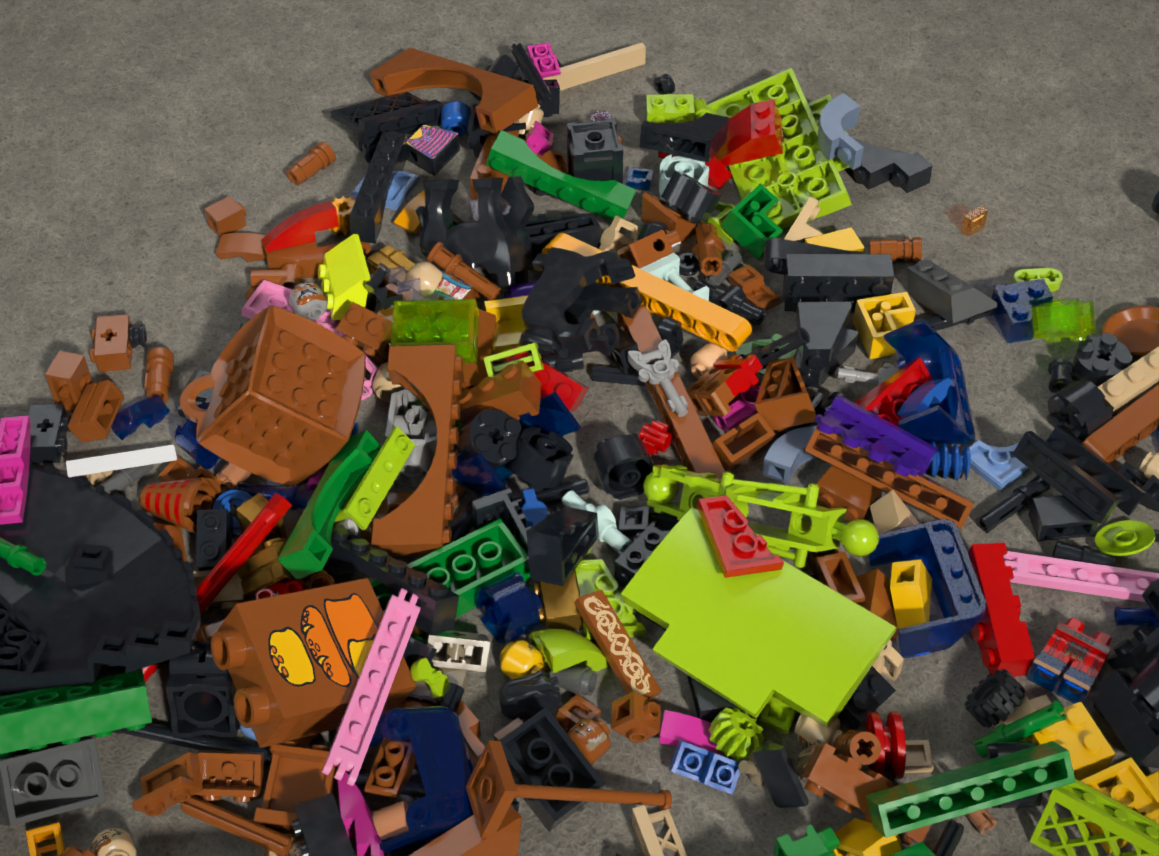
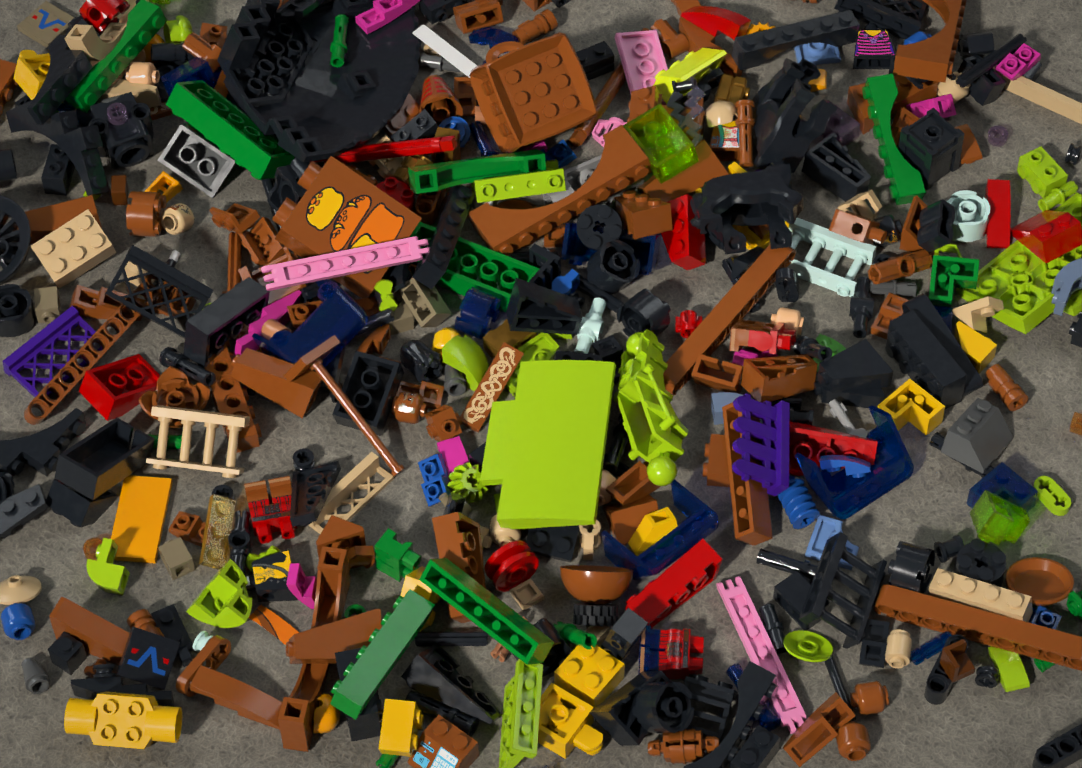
camera: 60 degrees right, 5 degrees up
(308, 301) = (650, 64): light grey head -> none
(536, 357) = (681, 209): lime tile -> none
(639, 178) = (950, 188): clear blue tile -> none
(660, 373) = (734, 292): light grey piece -> none
(666, 299) = (813, 247): light orange beam -> none
(691, 139) = (998, 197): black arch -> none
(733, 541) = (597, 395): wing -> none
(858, 745) = (486, 543): dark orange axle -> none
(891, 513) = (712, 490): tan slope -> none
(952, 672) = (596, 583): none -> dark orange piece
(1053, 676) = (624, 634): none -> black brick

